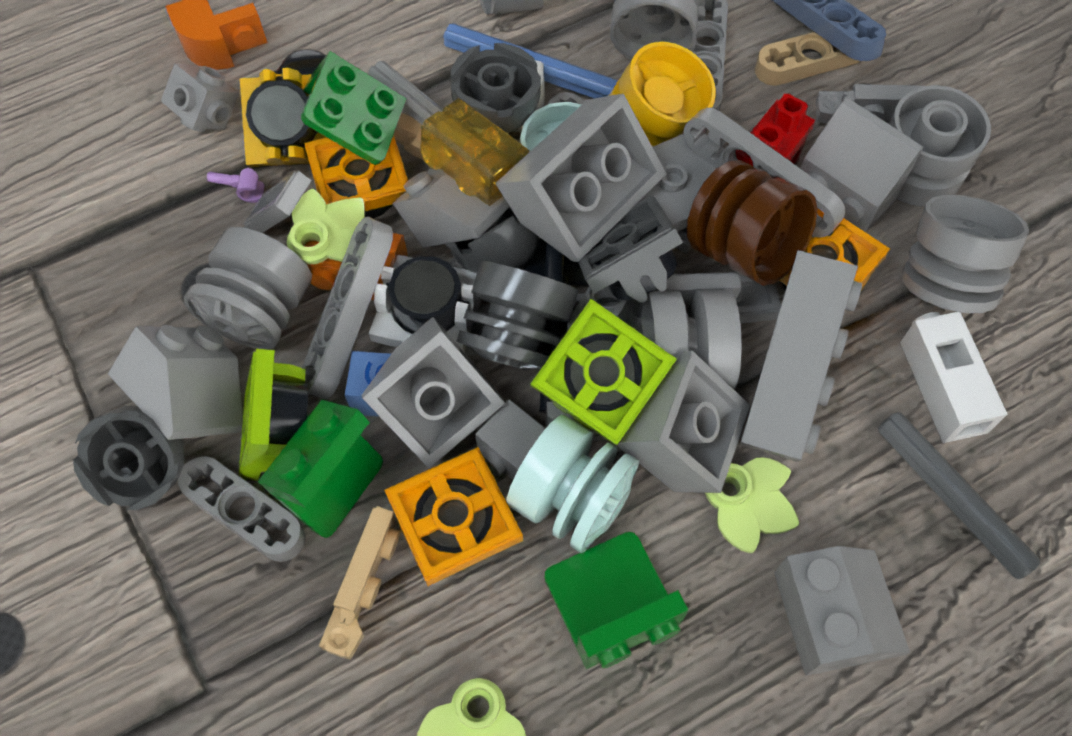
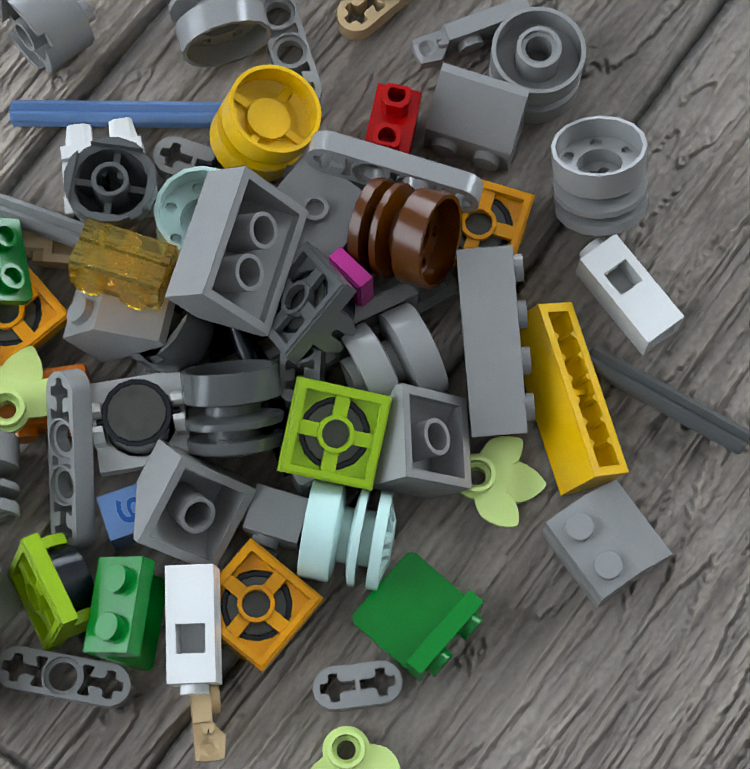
camera: 25 degrees left, 10 degrees up
(375, 505) = (193, 627): none -> white brick
(523, 632) = (357, 674): none -> light grey beam
(692, 244) = (355, 275): none -> dark pink tile
(854, 455) = (569, 401): none -> yellow brick

